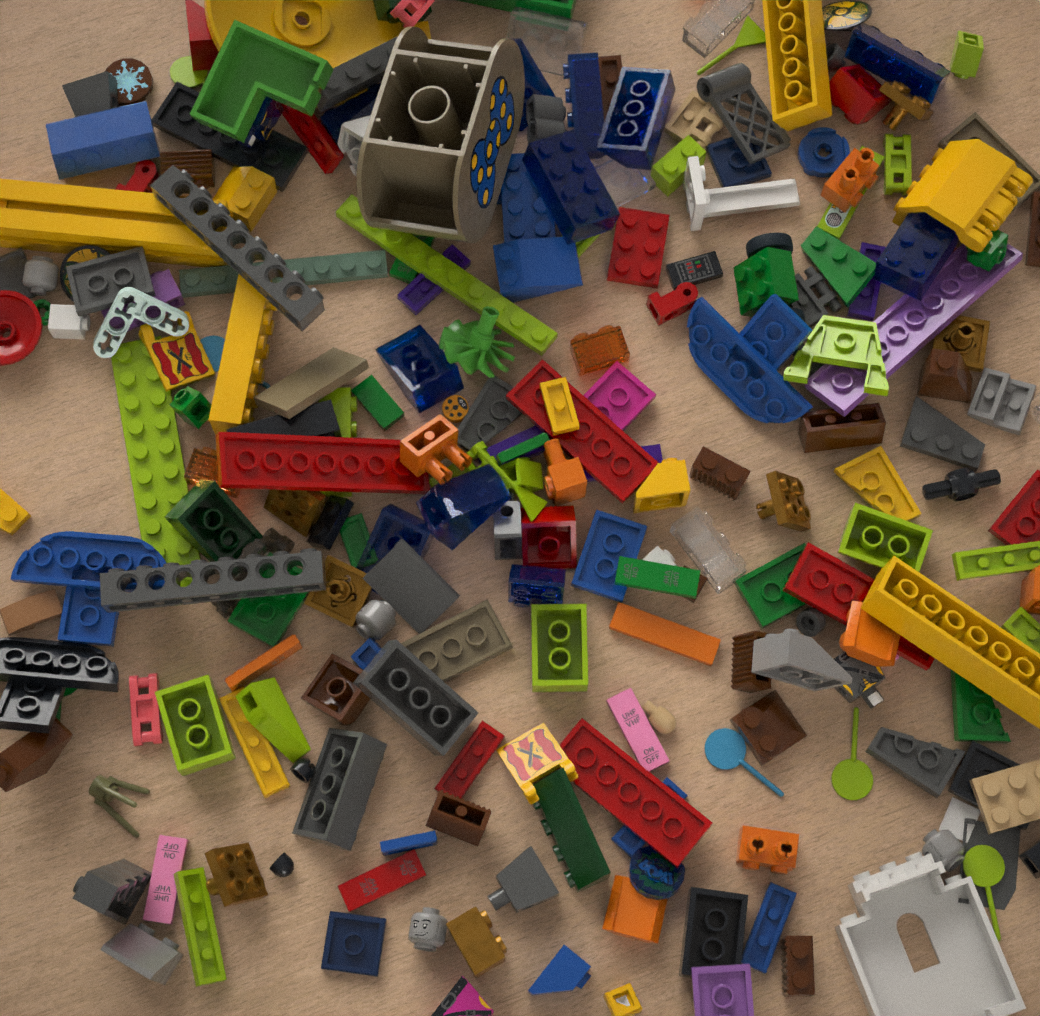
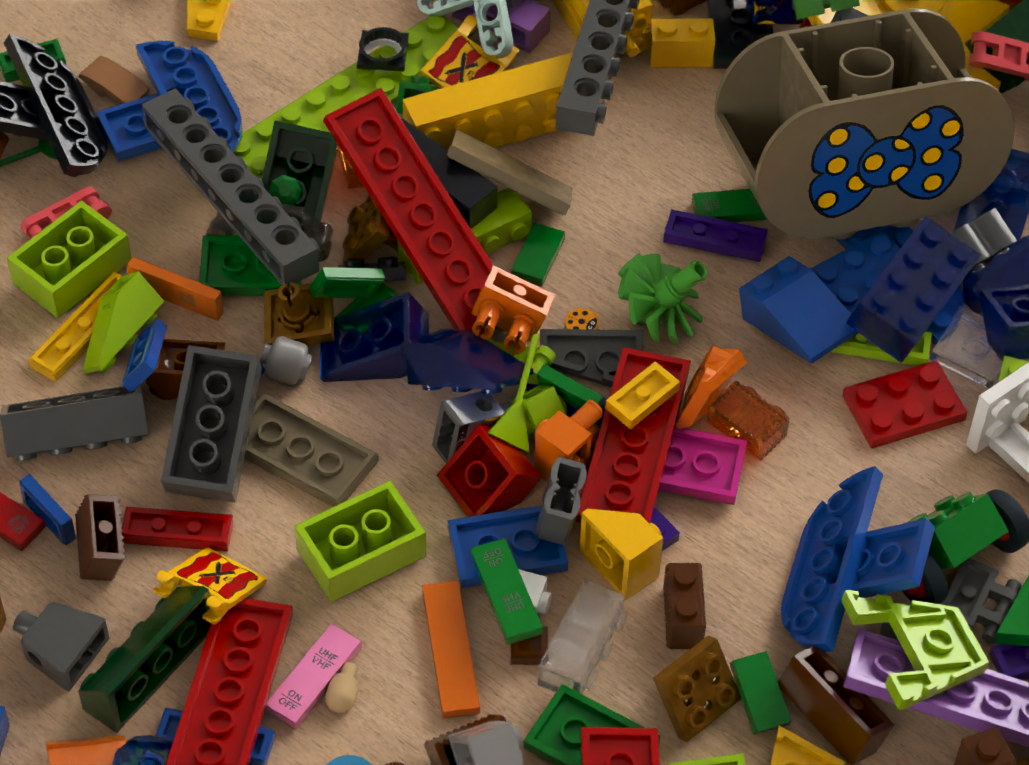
camera: 60 degrees right, 20 degrees down
(126, 390) = (382, 36): none -> black piece
(230, 543) = (286, 190): none -> green tile
(303, 769) = (76, 378): black hinge -> none
(313, 270) = (640, 127): sand green plate -> none
(323, 714) = (144, 355): none -> blue tile
(343, 545) = (346, 282): none -> green tile
(411, 586) = (343, 371): dark grey piece -> none
(420, 368) = (591, 268): clear blue slope -> none
(452, 279) = (724, 256): lime plate -> none
(535, 585) = (419, 478): clear blue slope -> none
(569, 359) = (708, 383): none -> orange slope
(606, 502) = (561, 500): none -> dark grey brick
(672, 304) = (850, 458): red leg -> none
(695, 270) = (920, 470): black tile -> none
(805, 465) = (760, 692): none -> green tile

